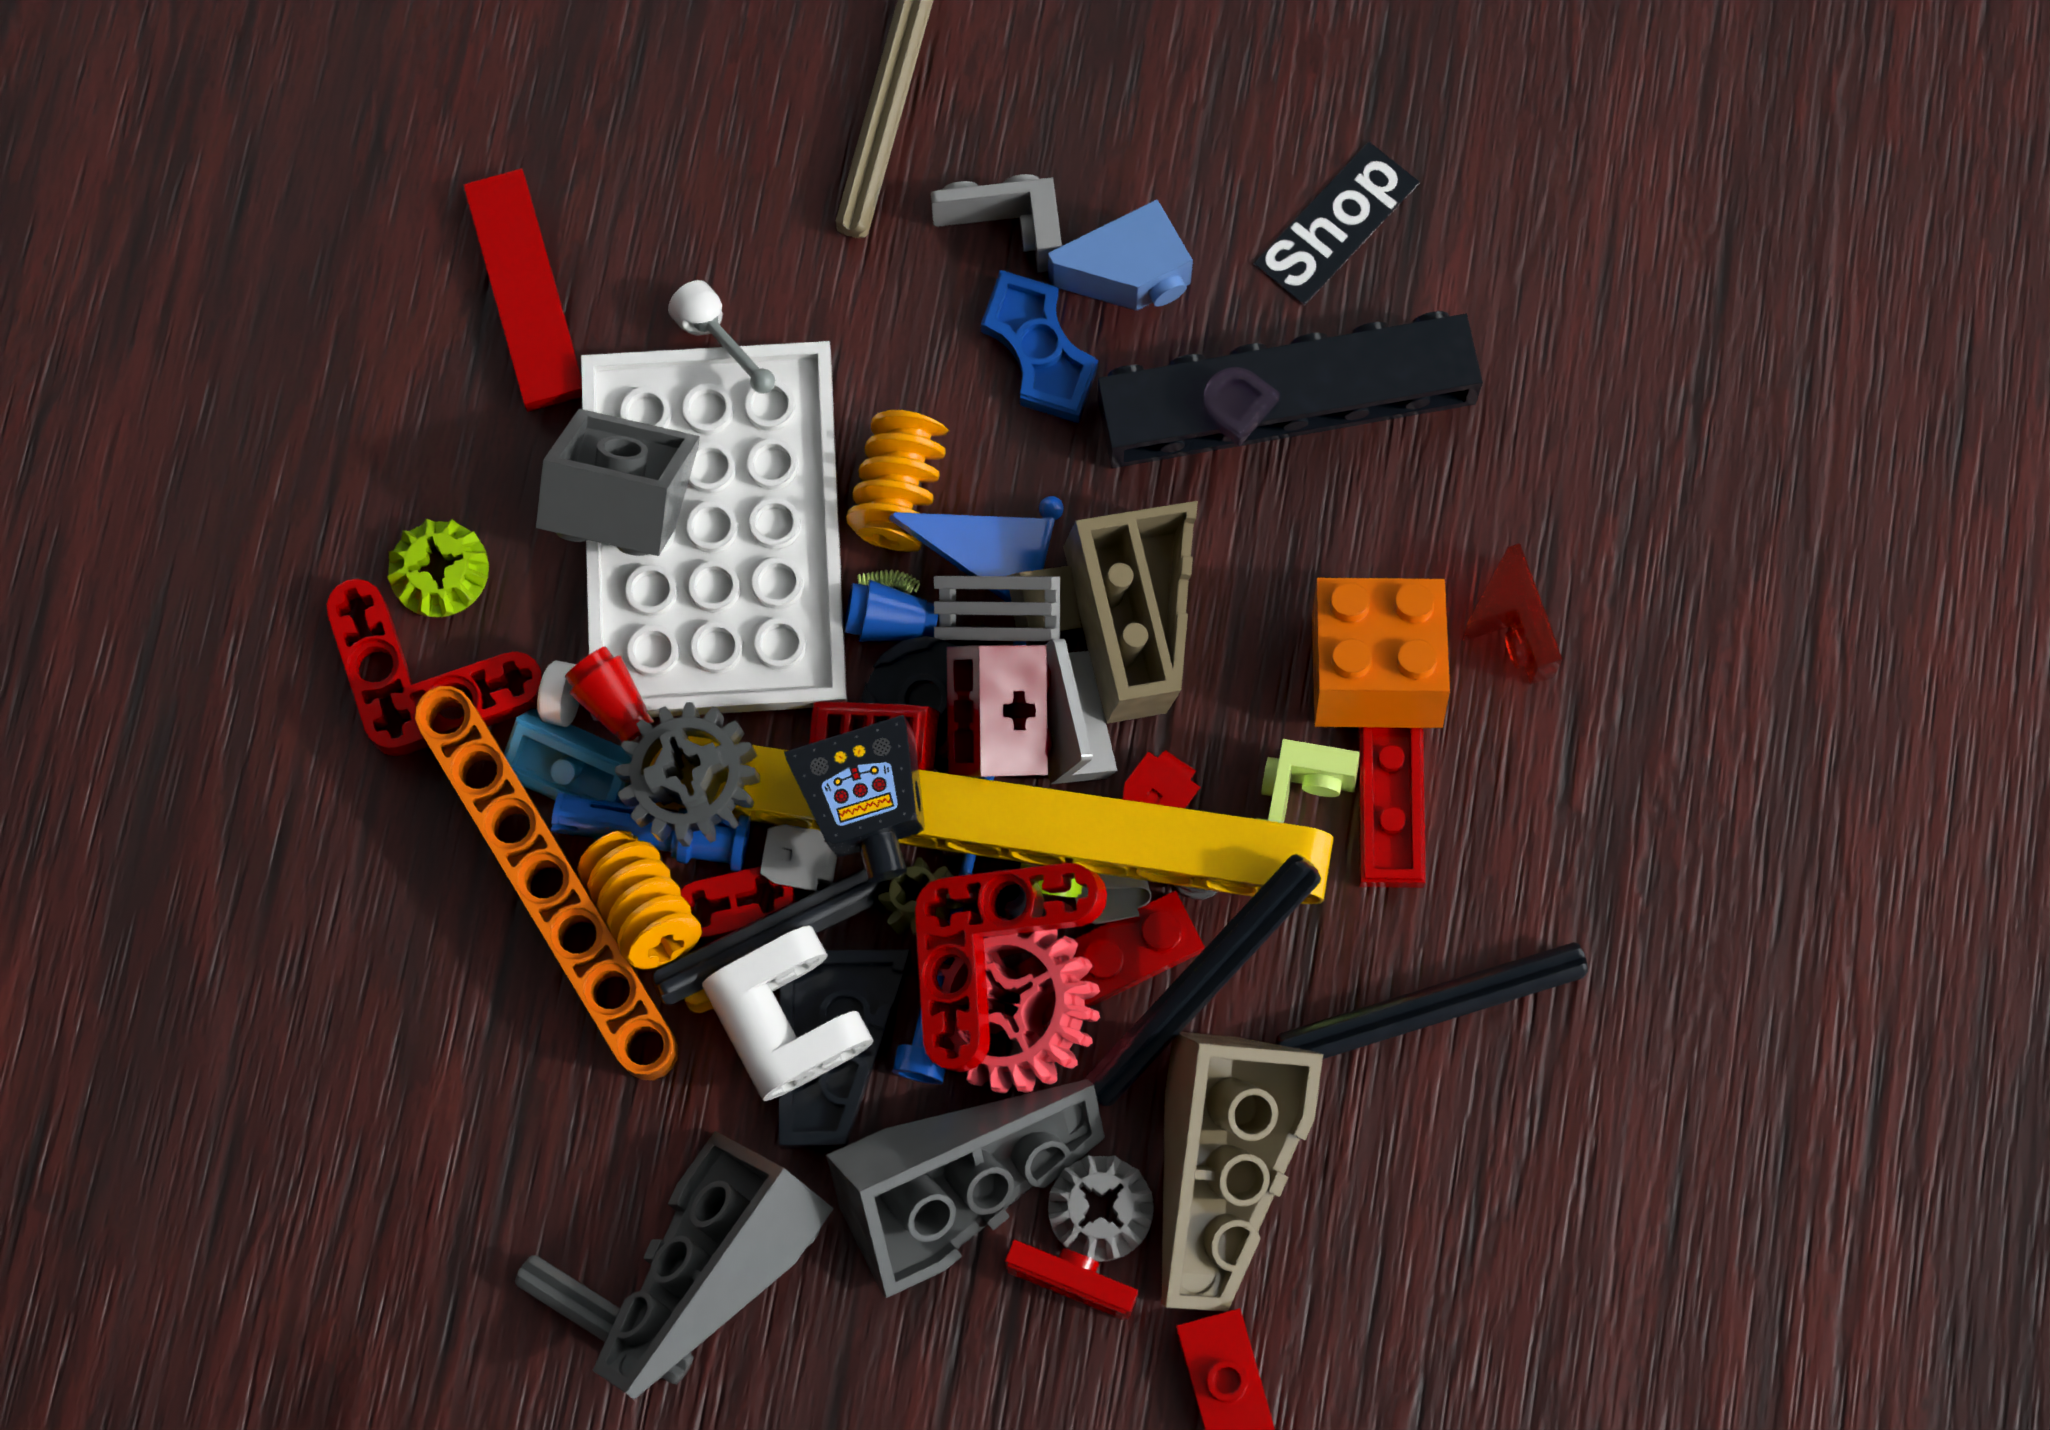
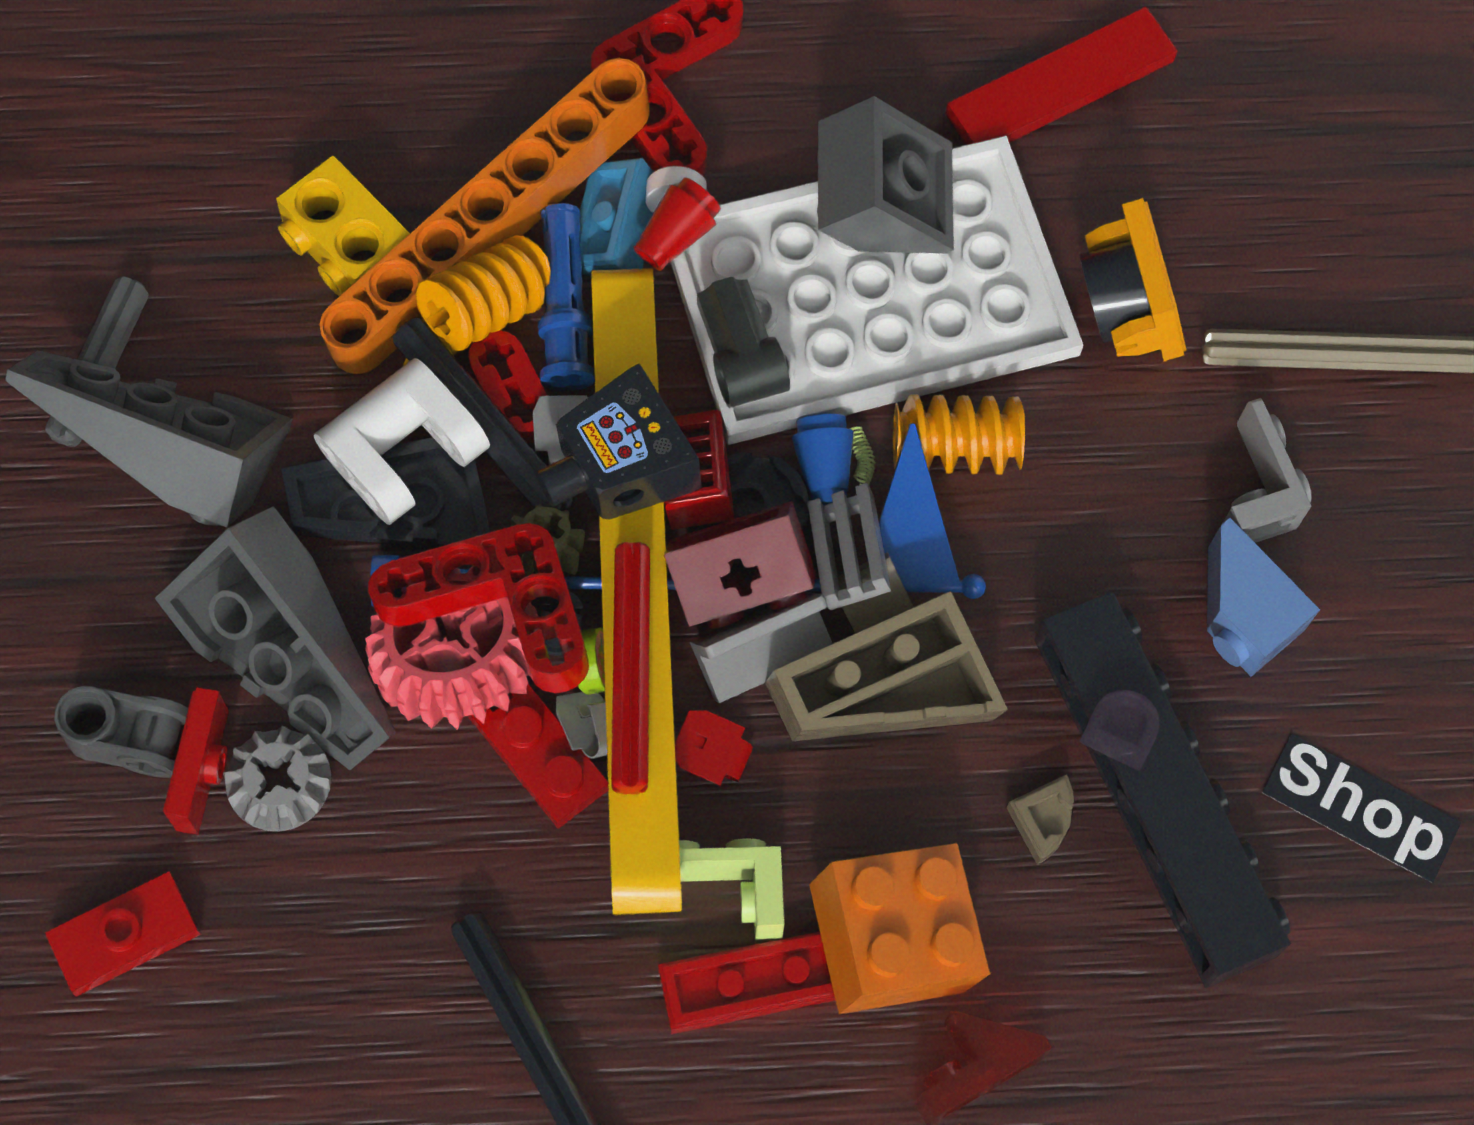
camera: 70 degrees right, 5 degrees down
(462, 580) = (764, 91): lime gear -> none
(516, 1019) = (356, 226): none -> yellow brick
(663, 779) = (607, 301): dark grey gear -> none
(699, 312) = (1074, 224): hinge -> none
(778, 659) = (744, 357): none -> pearl dark grey piece
(784, 277) = (1132, 286): none -> piece
(1025, 1336) = (136, 731): none -> dark grey piece
(1052, 369) = (1161, 527): blue tile -> none
(1092, 829) = (630, 669): none -> red axle
(1203, 978) = (511, 814): black axle -> none
(1227, 1141) = (364, 886): dark tan wedge -> none
(1290, 502) = (1044, 817): none -> dark tan tile

